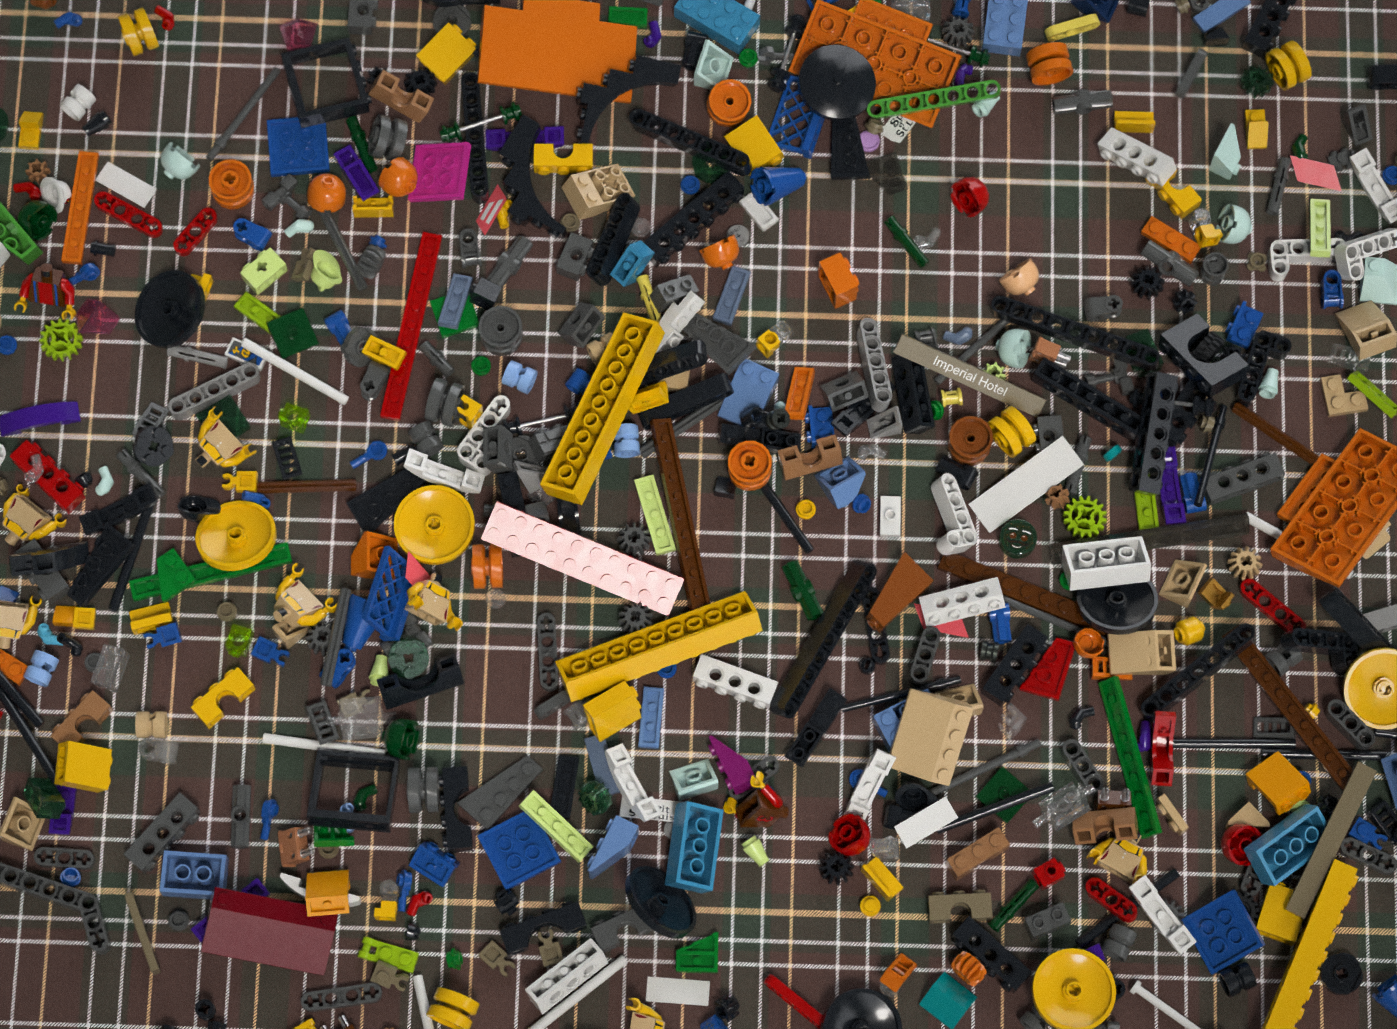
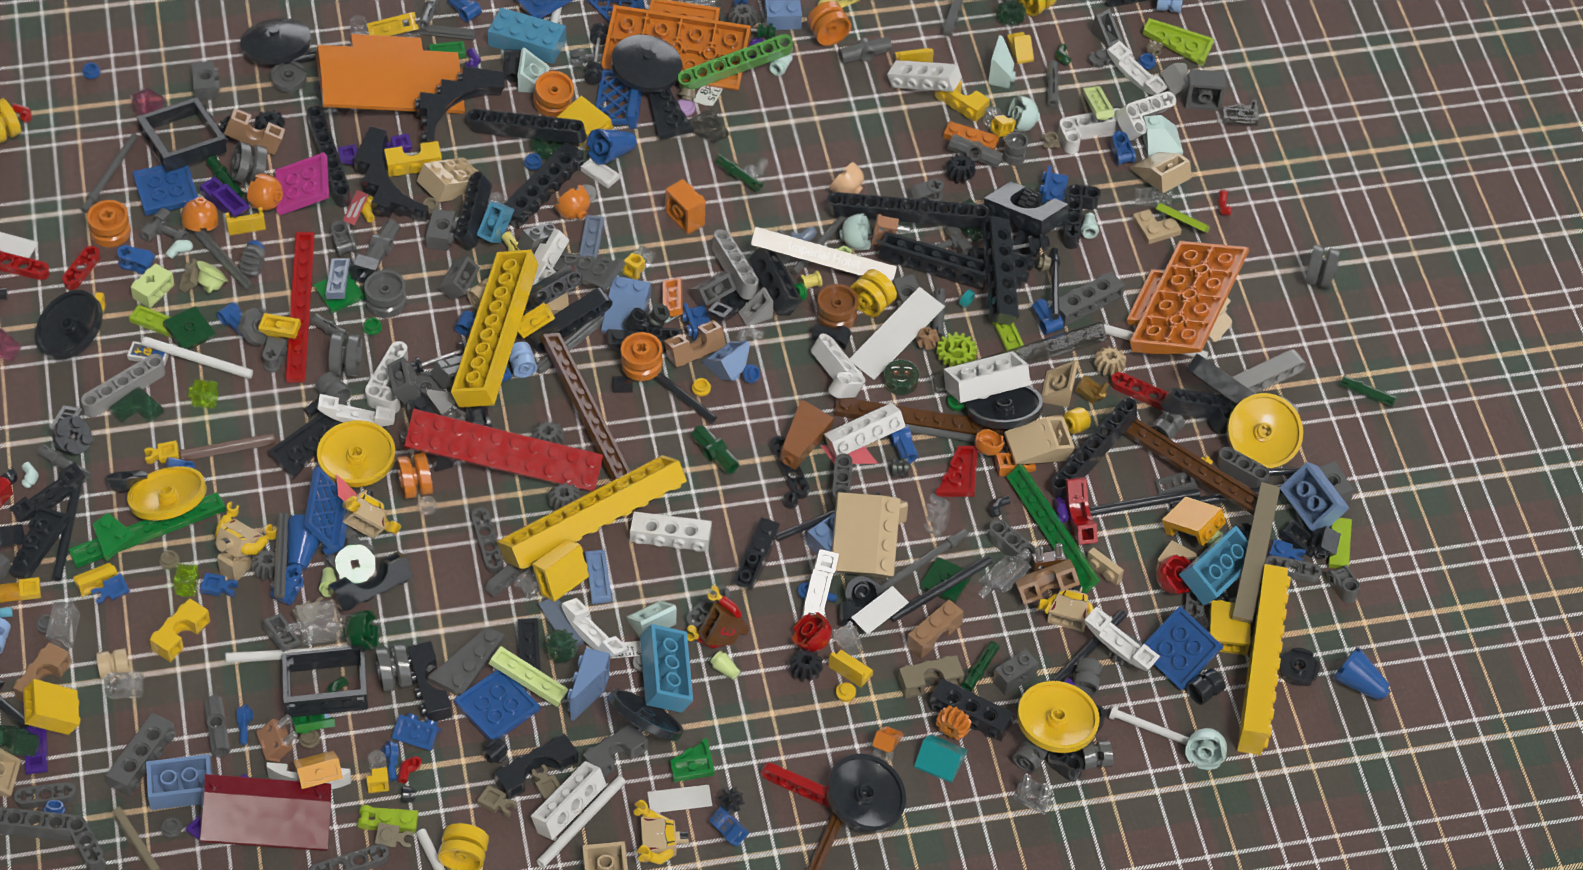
camera: 15 degrees left, 20 degrees down
(71, 643) = (19, 611): black arm -> none
(178, 162) = (55, 214): light aqua cylinder -> none
(218, 361) = (101, 361): light grey pin -> none
(220, 444) = (136, 424): torso -> none
(281, 442) = (202, 414): black slope -> none
(368, 554) = (297, 488): orange slope -> none
(376, 450) = (287, 408): blue plate -> none
(447, 53) = (289, 96): yellow brick -> none
(454, 959) = (454, 809): green plate -> none
(472, 411) = (372, 356): yellow hinge -> none
(513, 111) = (310, 150): dark green axle -> none
(520, 377) = (412, 327): light blue wheel -> none
(654, 515) = (562, 414): yellowish green plate -> none
(668, 671) = (604, 534): blue plate -> none
(733, 765) = (687, 596): magenta slope -> none
(748, 58) = (562, 63): green plate -> none
(823, 639) = (744, 483): black beam -> none
(890, 516) = (780, 380): white plate -> none
(970, 196) = (785, 129): red cylinder -> none
(1029, 637) = (926, 473): black brick -> none
(1049, 873) = (1006, 633): red brick -> none
(1127, 904) = (1057, 639): red beam -> none
(1170, 494) = (1027, 320): dark purple slope -> none
(1184, 301) = (991, 176): black gear -> none
(1275, 433) = (1105, 261): reddish brown axle -> none
(1315, 173) = (1081, 70): coral sticker -> none

